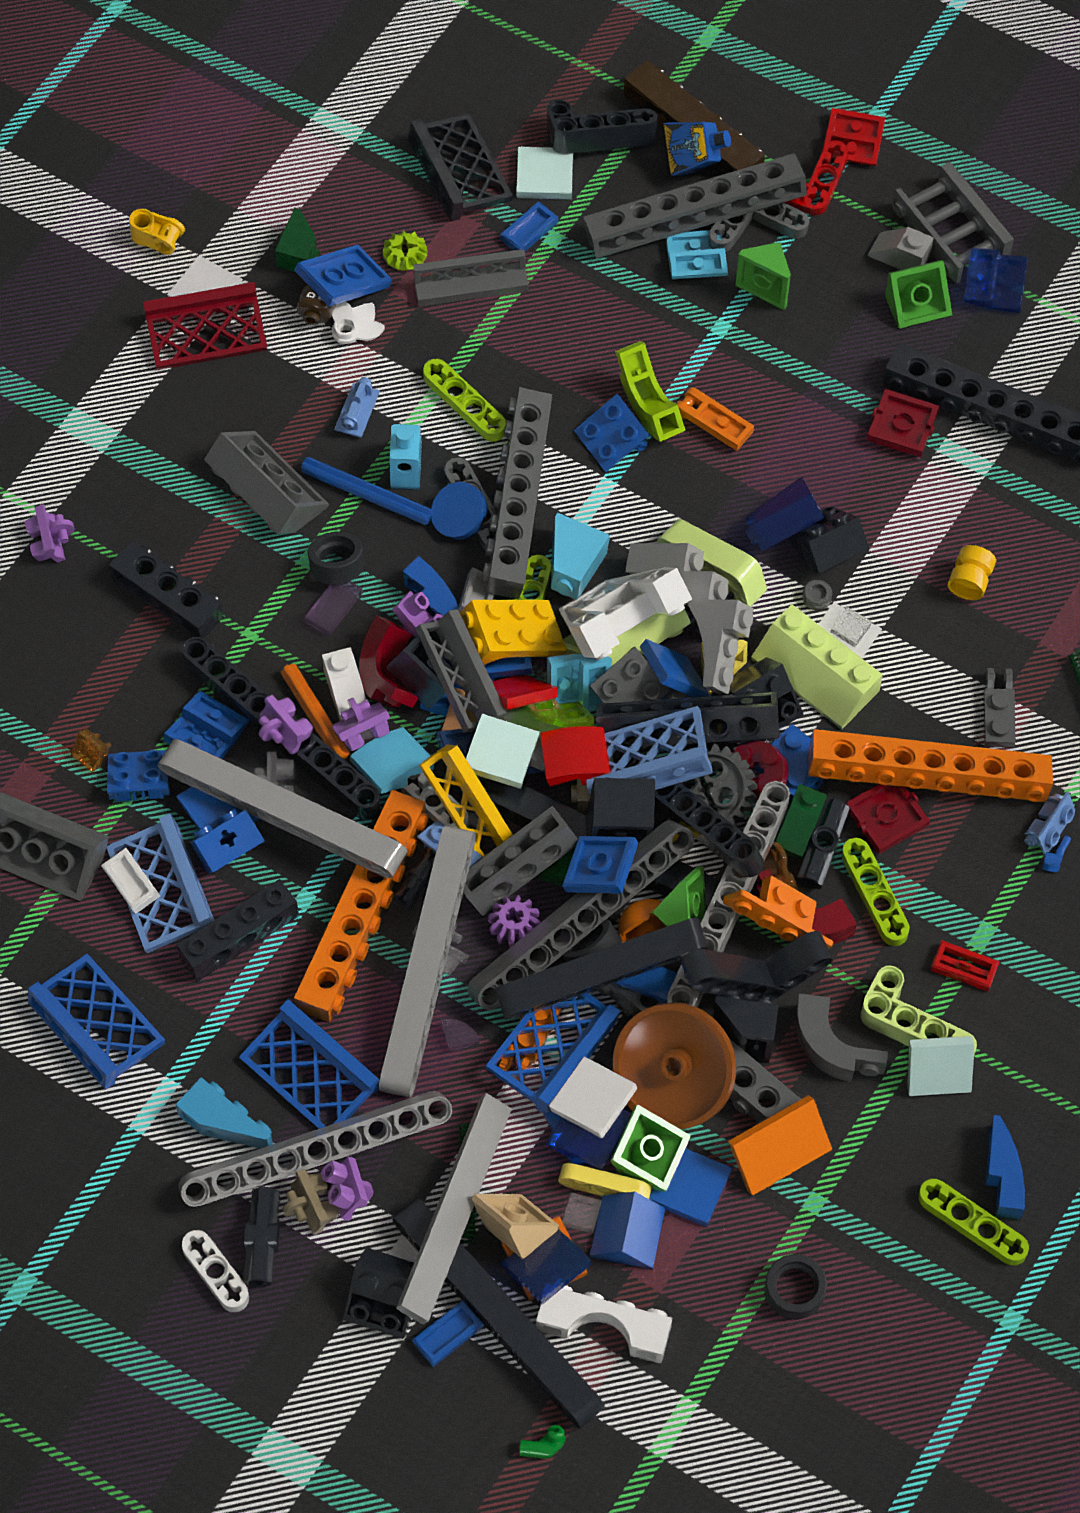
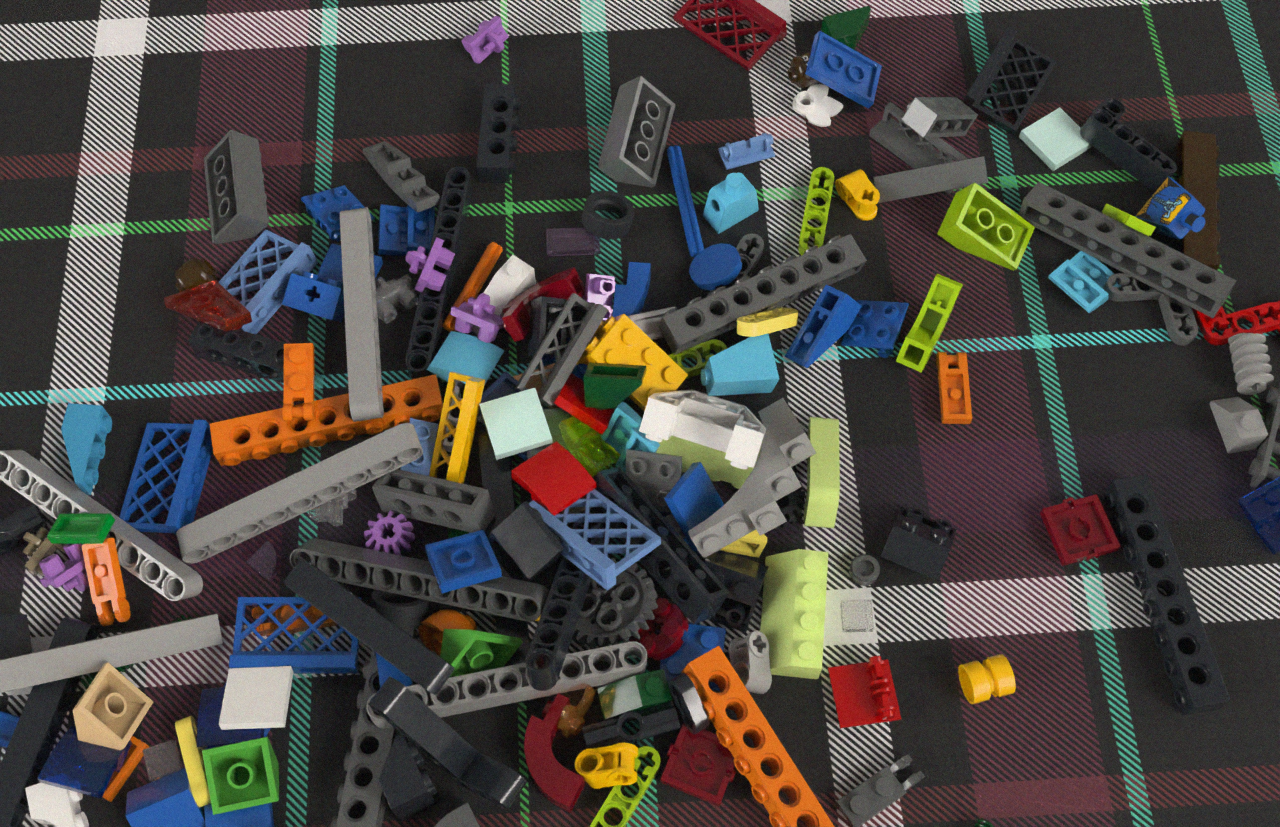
camera: 55 degrees right, 0 degrees up
(78, 1040) = (94, 308): blue fence -> none
(90, 749) = (334, 169): clear orange tile -> none
(115, 931) = (194, 273): none -> dark brown head
(130, 880) = (244, 260): white tile -> none
(139, 698) = (400, 176): none -> dark grey slope
(171, 927) = (210, 305): none -> clear red wing
(316, 898) = (298, 381): none -> orange plate
(326, 1150) = (81, 528): none -> green tile
(382, 1161) = (106, 581): none -> orange hinge
(394, 255) = (894, 92): lime gear -> none
(461, 239) = (939, 116): none -> dark grey brick
(473, 354) = (858, 194): none -> yellow piece
(514, 292) = (931, 179): none -> dark grey slope
(527, 653) = (611, 383): none -> dark green slope
(529, 227) = (1003, 159): blue tile -> none
(550, 507) = (767, 322): none -> light yellow beam
(584, 472) = (823, 326): none -> blue slope
(588, 287) = (986, 227): none -> lime slope
(672, 182) = (1128, 220): none -> lime tile
(677, 1062) = (324, 744): dark orange dish -> none
(764, 273) = (1112, 333): bright green slope -> none
(777, 909) = (529, 734): orange bracket -> none
(783, 515) = (909, 493): clear blue slope -> none
(832, 717) = (750, 663): none -> light grey piece
(840, 784) = (688, 703): none -> black beam
(845, 874) = (608, 765): none -> yellow piece
(861, 201) = (1250, 362): none -> light grey piece
(917, 665) = (864, 693): none -> red hinge
(918, 294) = (1208, 461): bright green slope -> none

